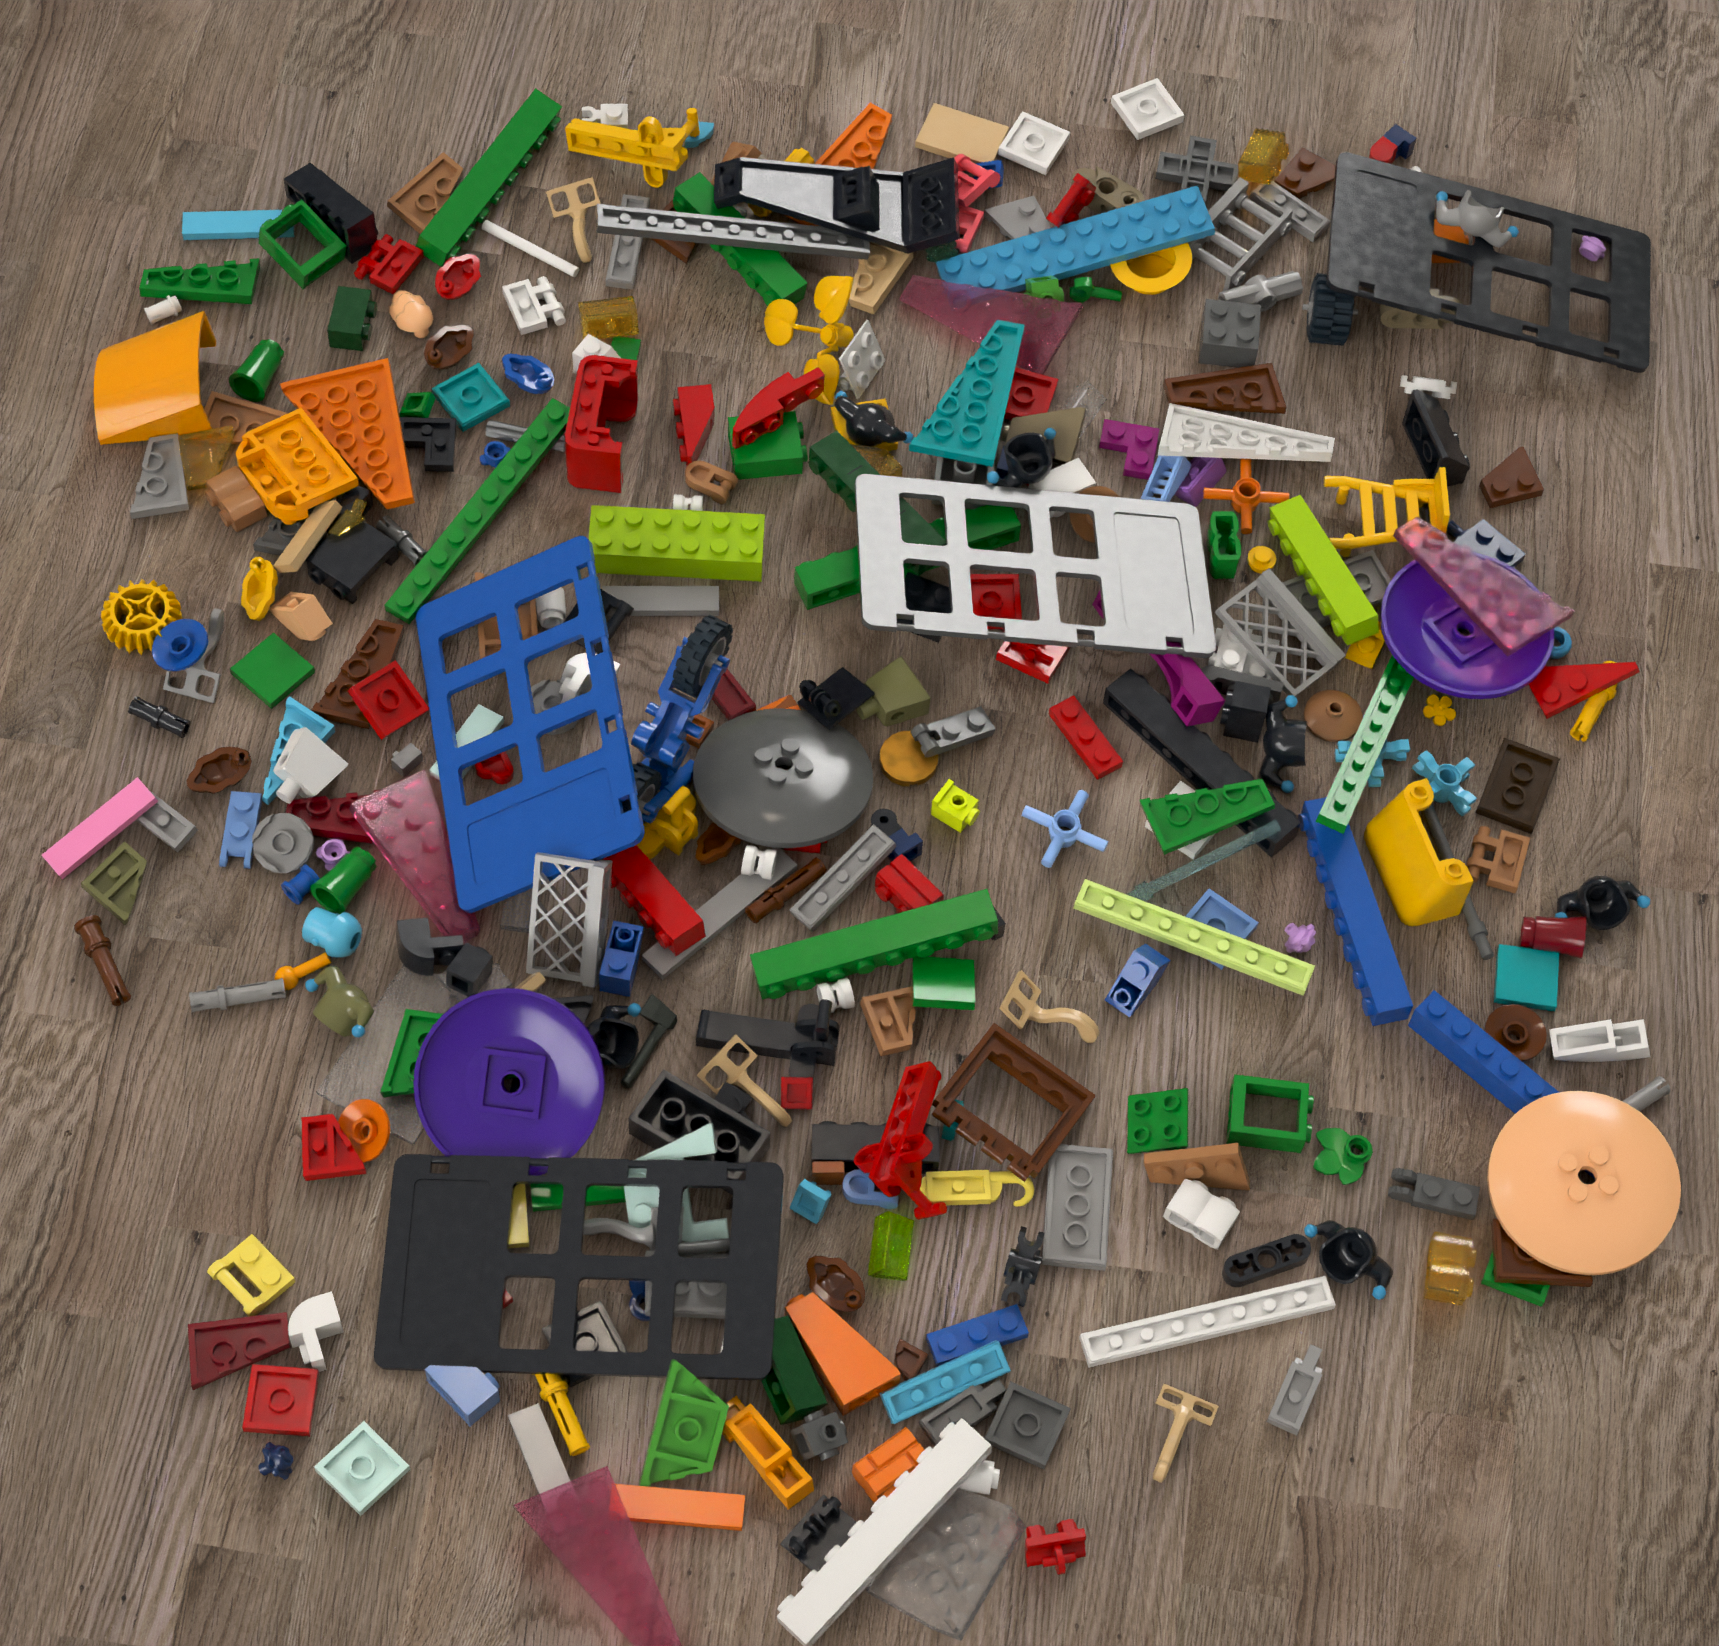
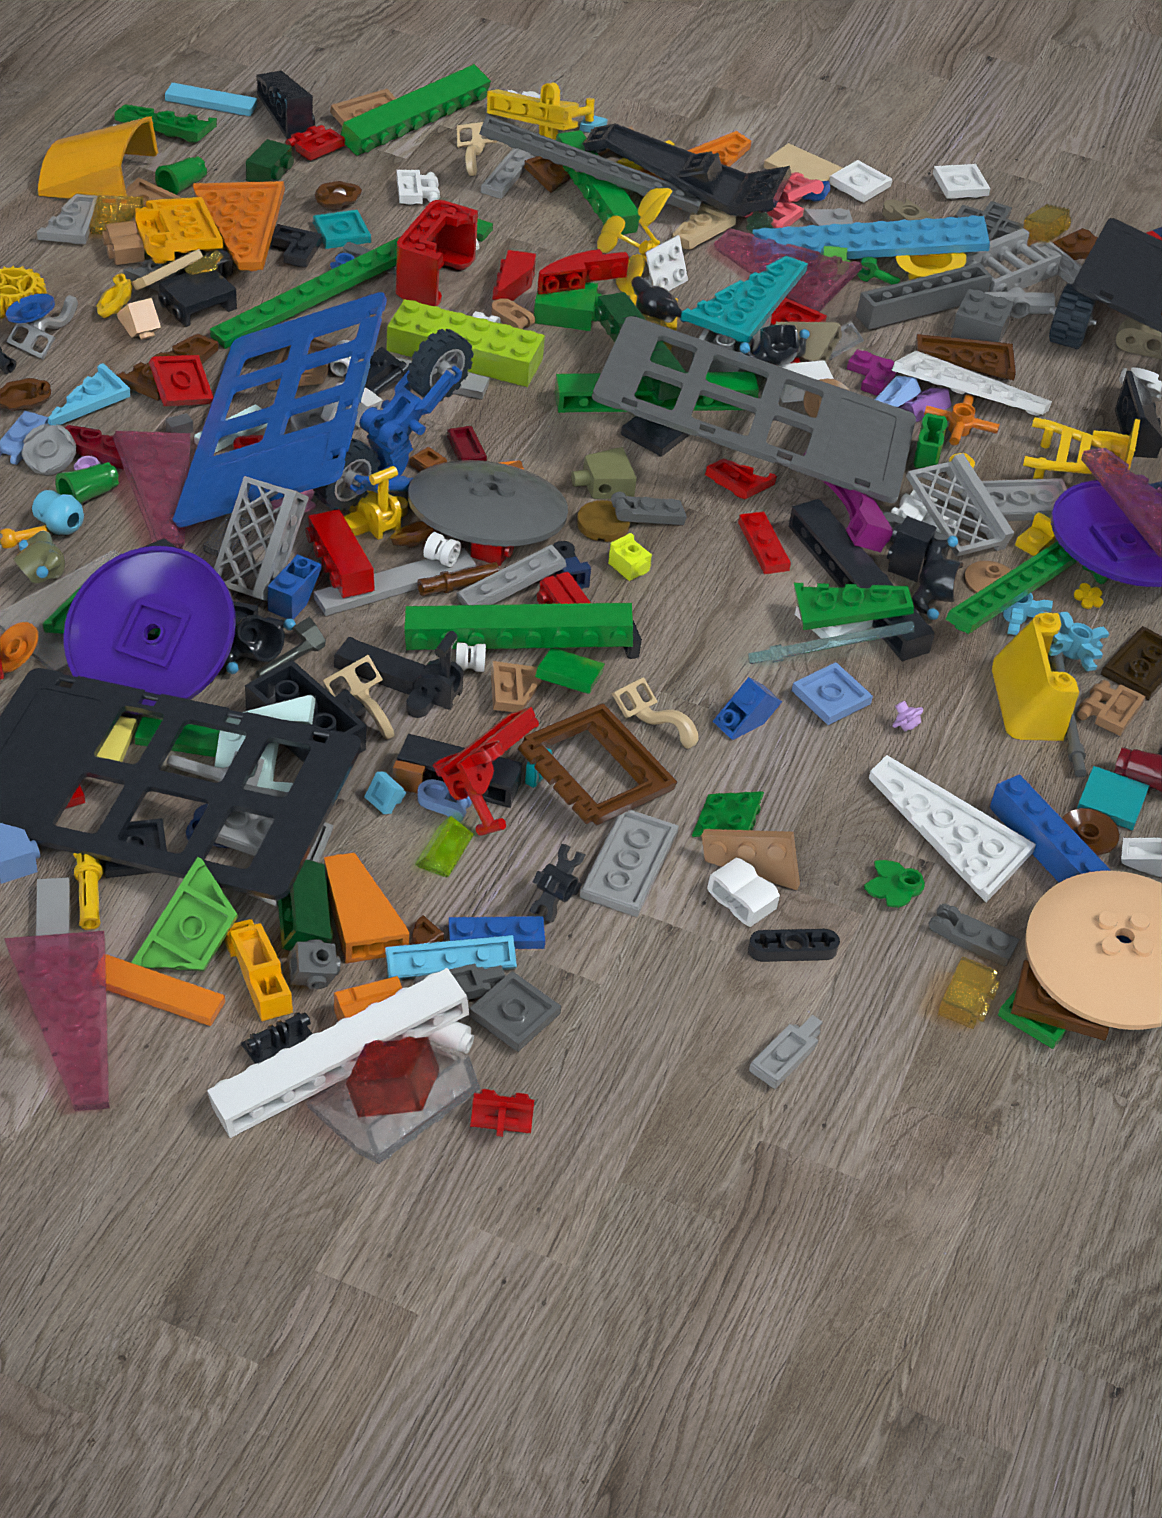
camera: 15 degrees right, 15 degrees down
(272, 670) = (99, 347): green tile -> none
(300, 884) = (46, 479): blue bush -> none
(306, 766) = (93, 403): white torso -> none
(316, 266) = (253, 130): green window -> none
(403, 538) = (244, 293): dark grey pin -> none
(411, 313) = (318, 171): light nougat arm -> none
(417, 405) = (298, 220): green tile -> none
(422, 952) = (126, 535): black brick -> none
(457, 276) = (364, 158): red arm -> none
(528, 373) = (391, 222): blue arm -> none
(530, 248) = (429, 157): white bar -> none
(608, 317) = (478, 200): clear yellow brick -> none
(796, 1092) = (406, 715): red tile -> none
(834, 697) = (548, 466): black hinge -> none
(836, 1283) = (381, 857): reddish brown arm -> none
(952, 1557) = (393, 1076): none -> clear red brick
(971, 1187) = (538, 820): light yellow plate -> none
(996, 596) = (705, 447): red plate -> none
(1059, 837) = (721, 594): light blue bar -> none
(1078, 196) = (879, 208): red plate -> none
(1157, 319) = (920, 296): none -> dark grey brick
(1183, 1415) = (667, 1037): tan piece -> none
(1194, 937) = (811, 691): yellowish green tile -> none
(1207, 1321) = (720, 978): white tile -> none
(1264, 1137) = (828, 851): green window -> none
(1323, 570) = (1012, 474): lime brick -> none
(1350, 1255) = (876, 956): black piece -> none
(1357, 918) = (965, 714): blue brick -> none
(1395, 1074) = (968, 839): none -> white wing

